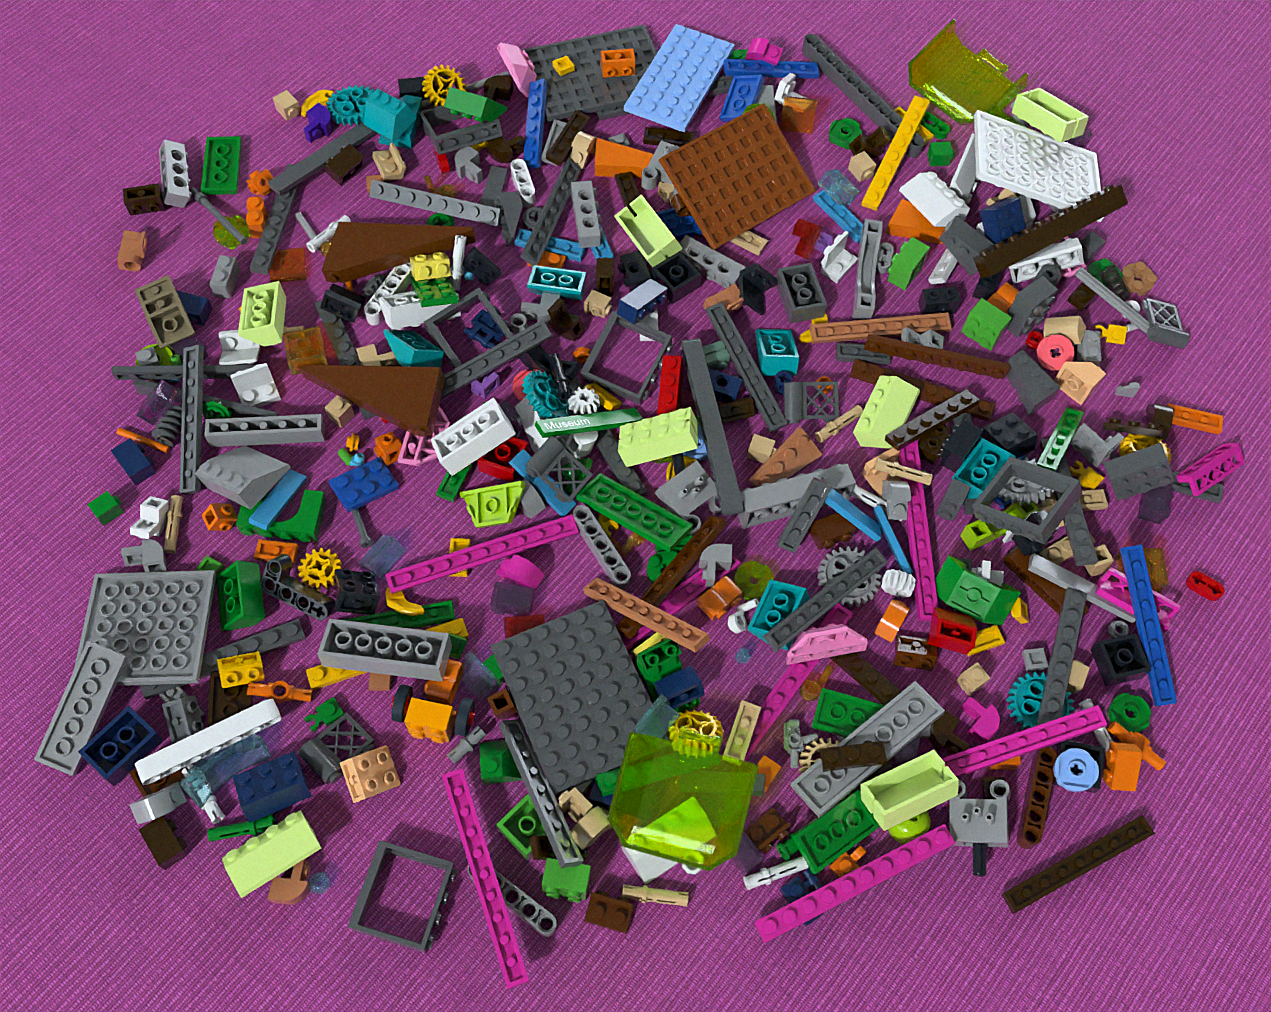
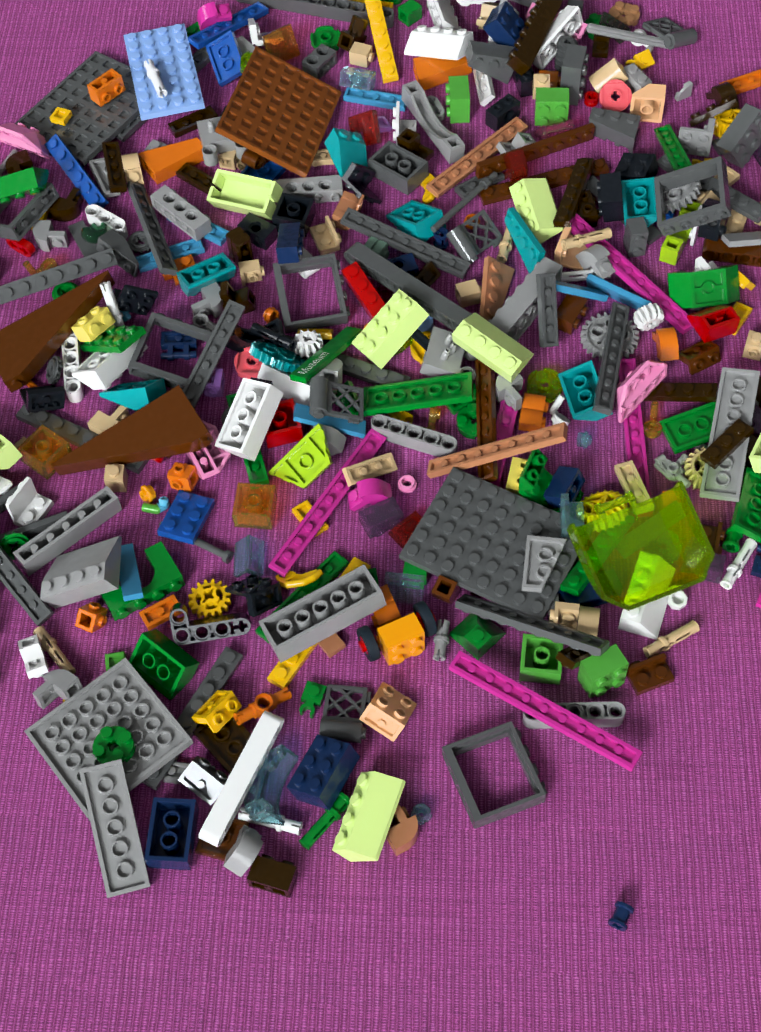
camera: 30 degrees left, 5 degrees down
(135, 629) = (109, 736): none -> green plate
(421, 514) = (254, 506): none -> clear yellow brick
(502, 184) = (91, 233): none -> clear green hair
(538, 550) = (369, 469): none -> tan plate
(560, 580) = (407, 479): none -> bright pink plate
(592, 741) = (540, 560): none -> light grey wing
(663, 75) = (153, 74): none -> white pin
(686, 315) = (326, 237): none -> tan bracket
(724, 515) = (491, 346): none -> yellowish green slope
(769, 248) = (346, 148): none -> teal slope
(820, 150) = (320, 61): none -> dark grey brick
(829, 281) = (411, 141): none -> dark brown brick
(849, 433) = (525, 241): none -> teal wing
(862, 357) = (483, 184): none -> dark grey bar
(901, 360) = (516, 165): none -> clear red brick
(977, 350) = (546, 131): none -> clear pink plate
(992, 295) = (540, 80): none -> tan brick

